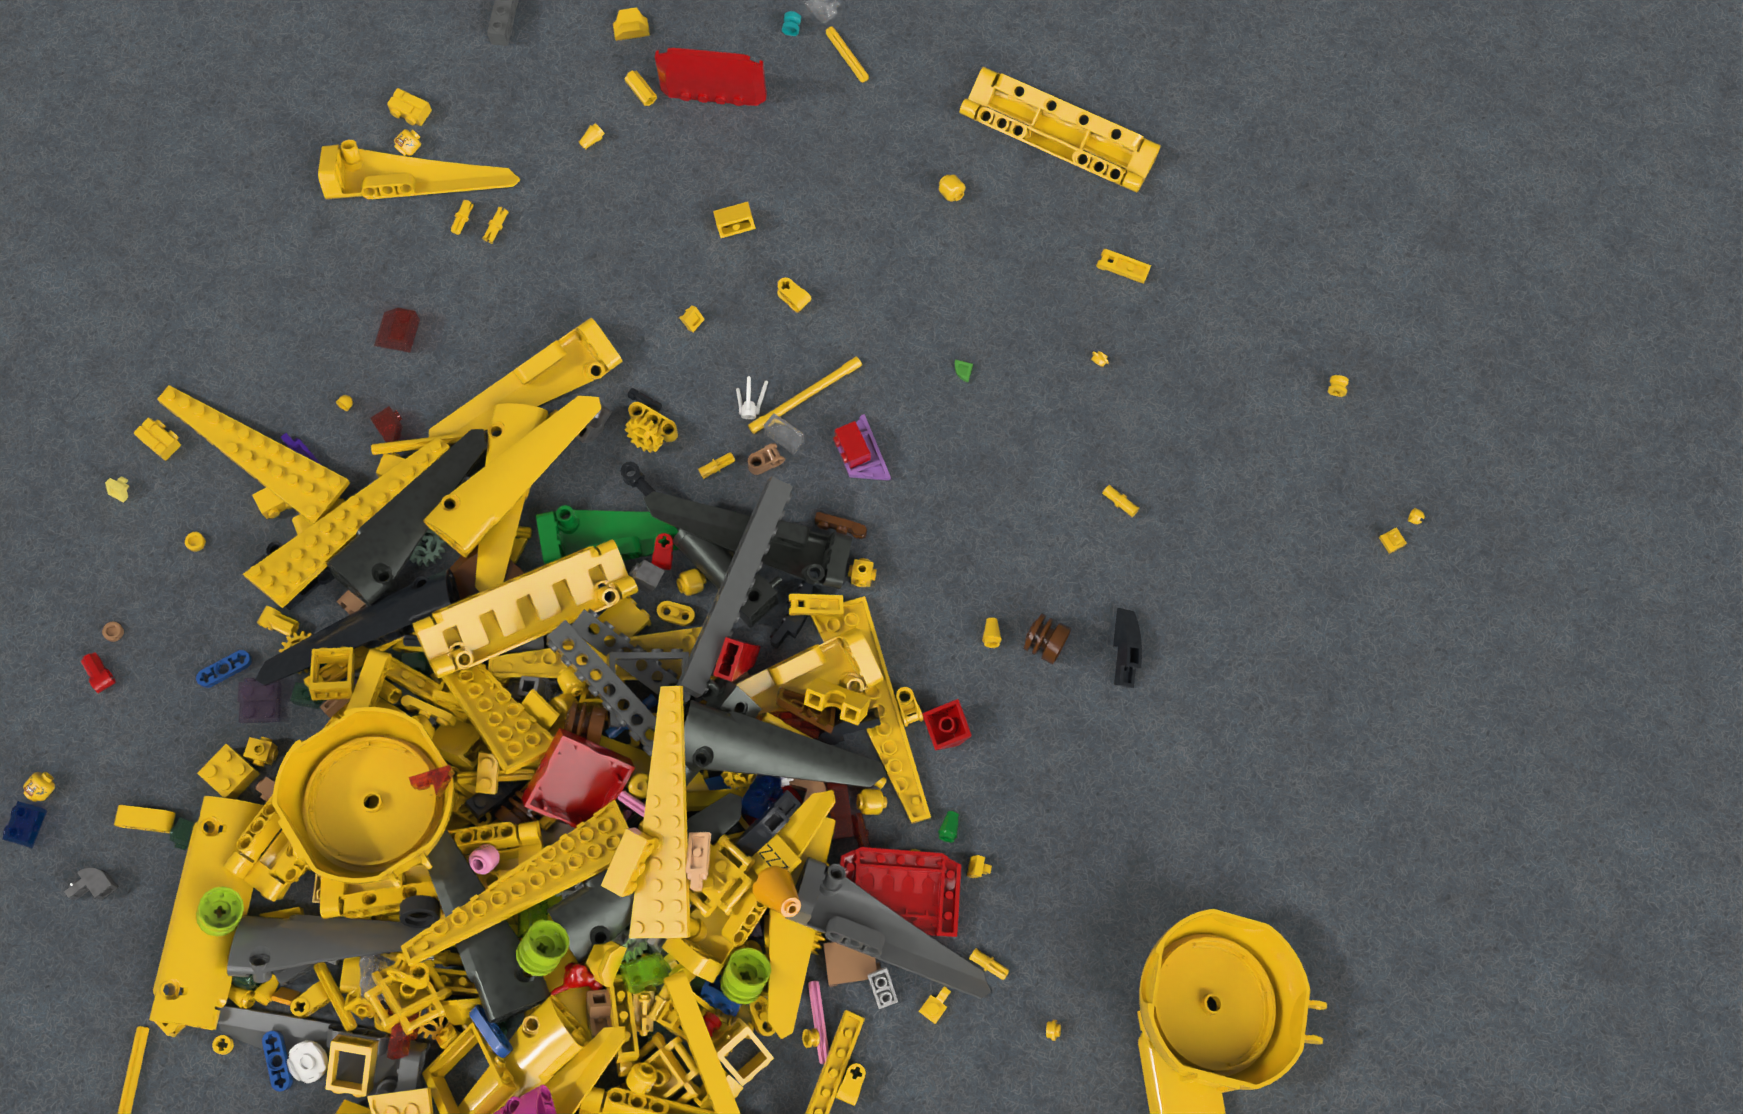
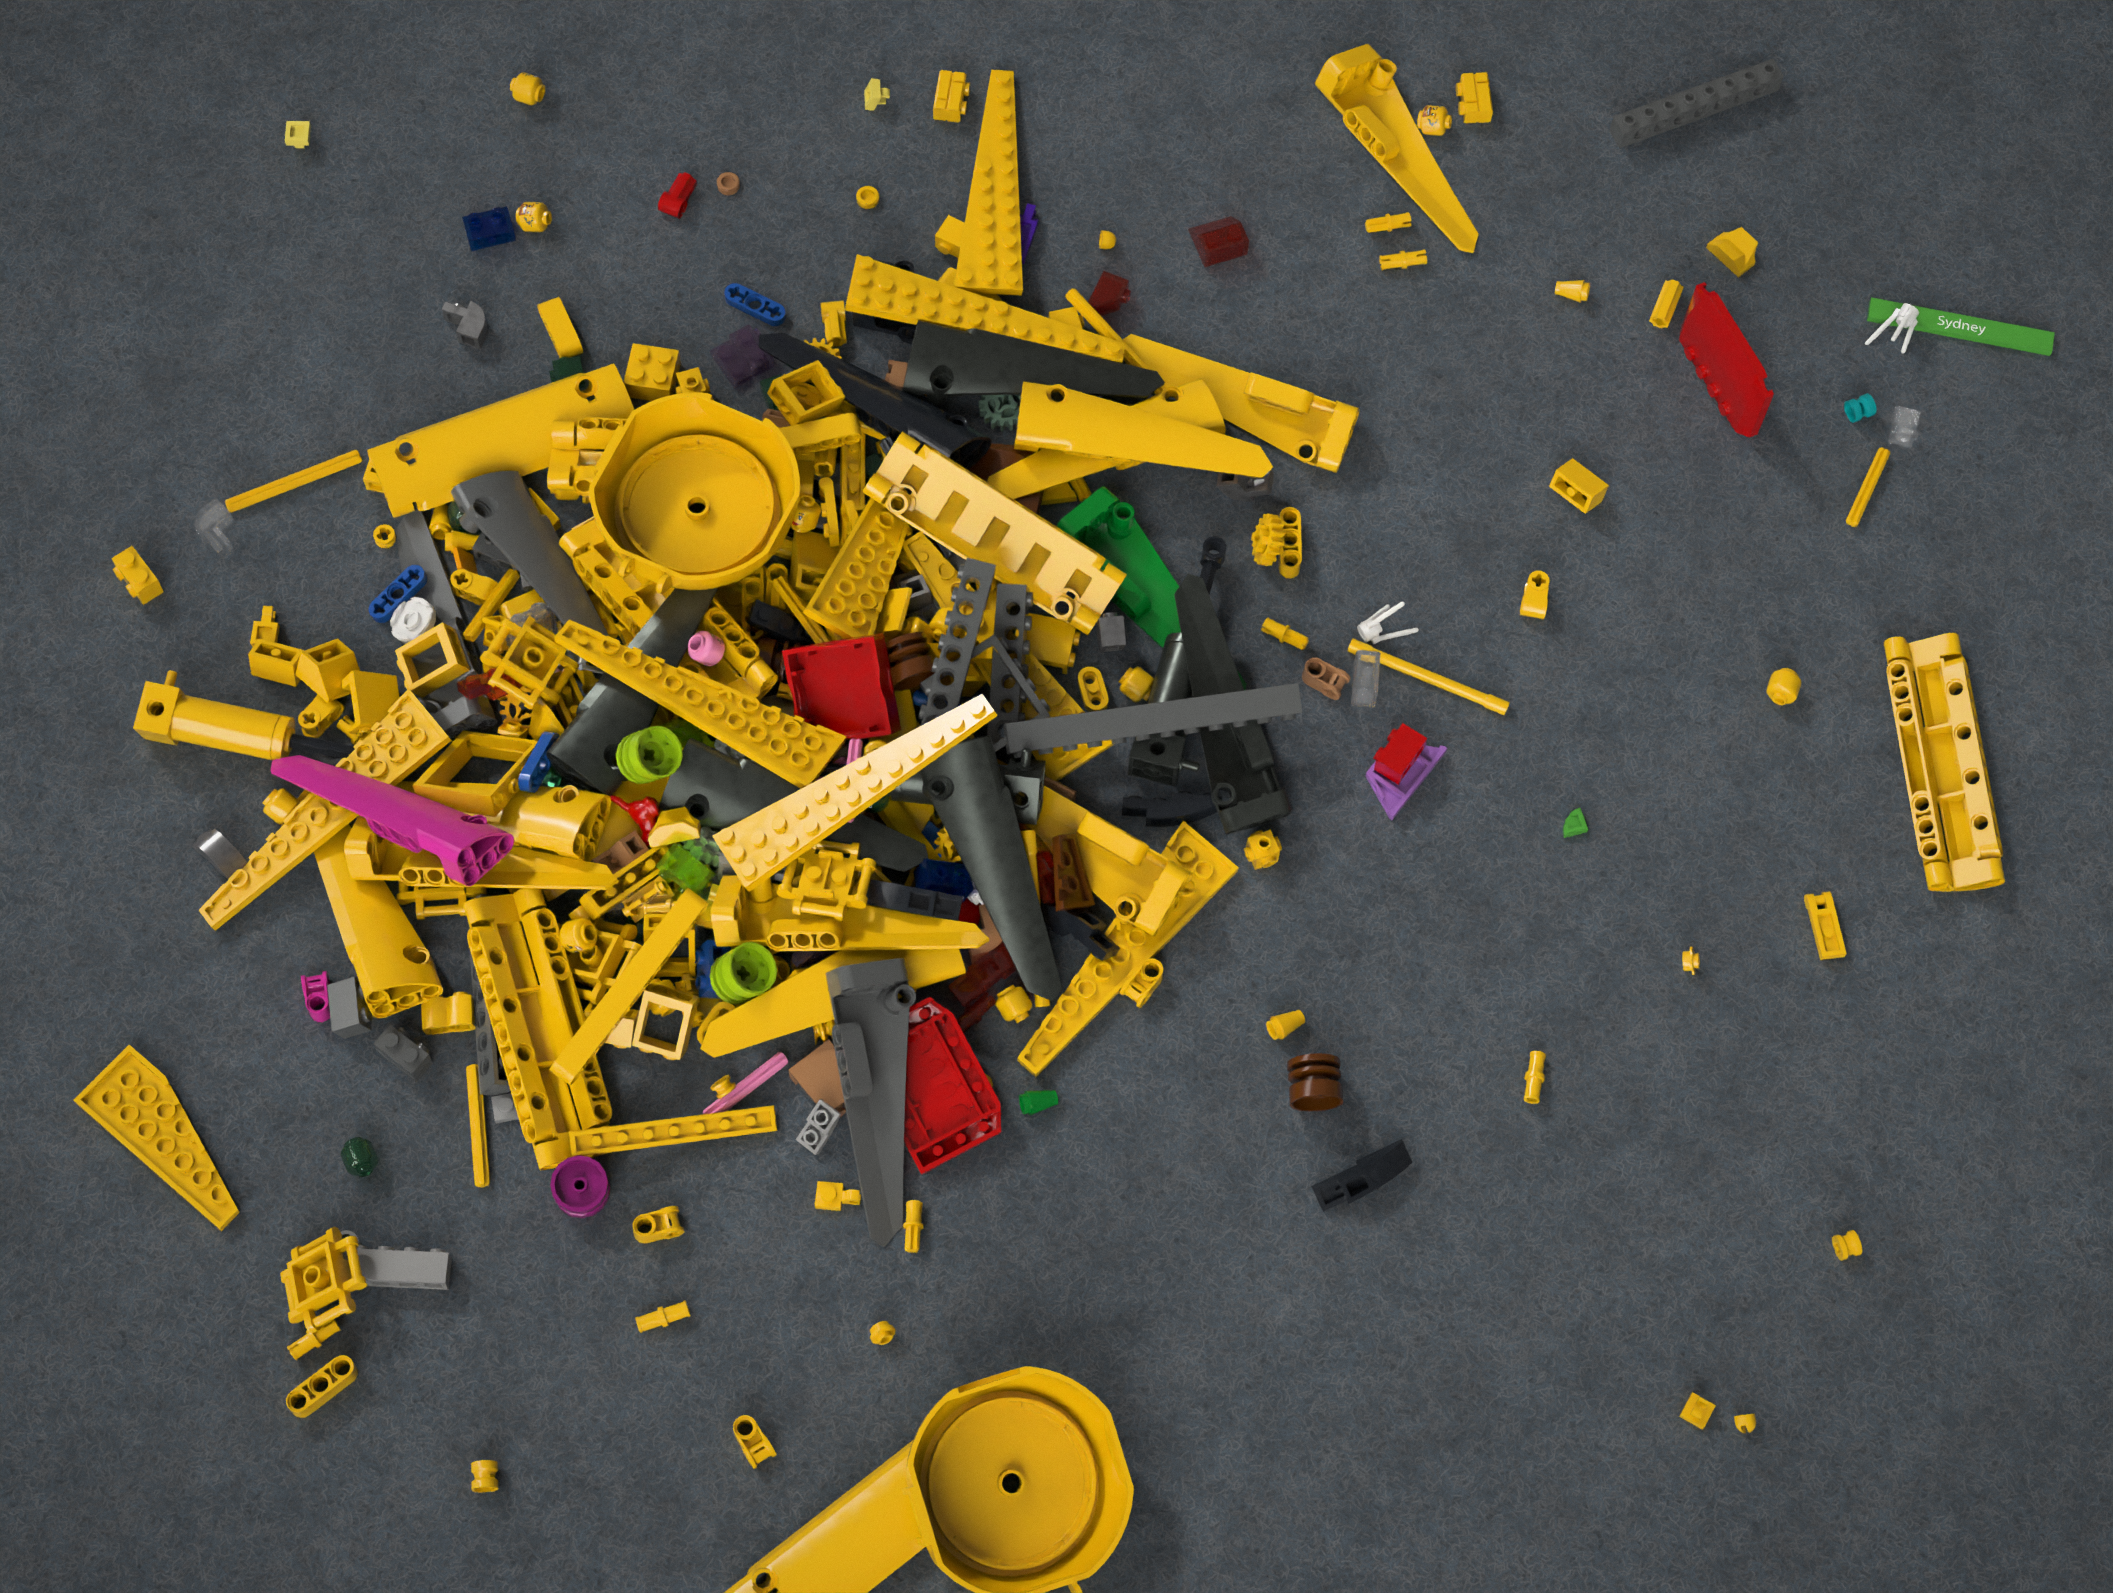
camera: 55 degrees right, 5 degrees down
(231, 908) = (510, 430): lime wheel -> none
(404, 973) = (545, 644): yellow piece -> none
(419, 911) = (618, 621): black tyre -> none
(438, 777) = (750, 541): clear red slope -> none
(487, 773) = (795, 601): yellow plate -> none
(628, 862) = (785, 780): yellow brick -> none
(644, 399) = (1309, 521): black axle -> none
(663, 556) = (1149, 638): red piece -> none
(692, 318) = (1434, 512): yellow tile -> none
(698, 858) = (830, 847): light nougat hinge -> none
(712, 1022) = (672, 972): red wheel -> none
(735, 658) = (1077, 769): red slope -> none
(775, 853) = (877, 927): yellow tile -> none
(777, 891) = (845, 940): light orange cone -> none
(816, 604) = (1192, 819): yellow plate -> none
(825, 694) = (1095, 880): yellow arch -> none
(841, 525) = (1302, 799): reddish brown hinge -> none
(850, 1088) = (697, 1155): yellow piece -> none
(947, 725) = (1146, 1032): red slope -> none
(977, 867) = (1011, 1155): yellow tile -> none

